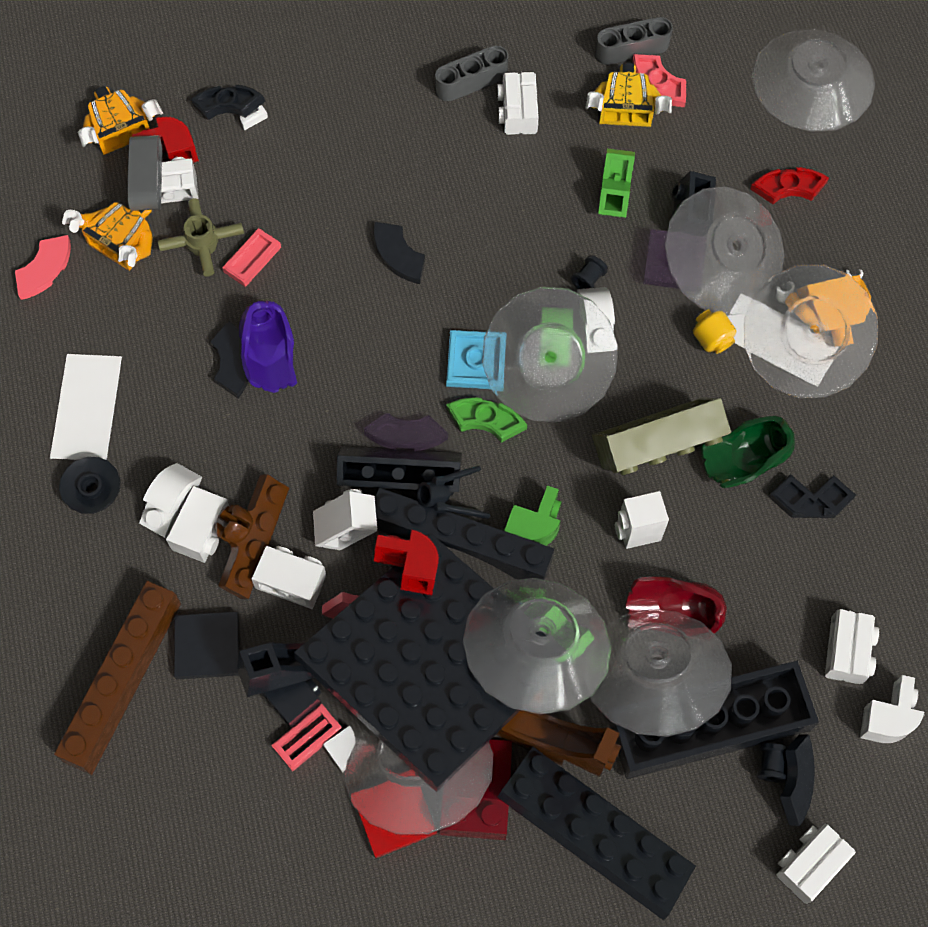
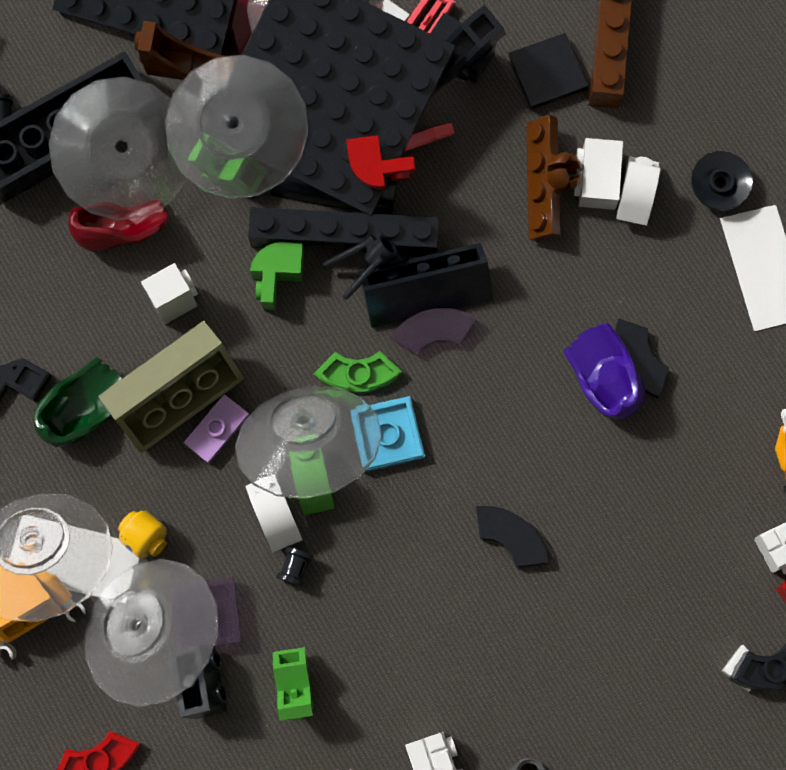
camera: 165 degrees right, 10 degrees up
(200, 236) = (717, 489): olive bar -> none
(251, 257) = (666, 482): coral tile -> none
(289, 576) = (494, 150): white brick -> none
(345, 520) = (459, 207): white brick -> none
(628, 404) = (216, 429): none -> lavender plate

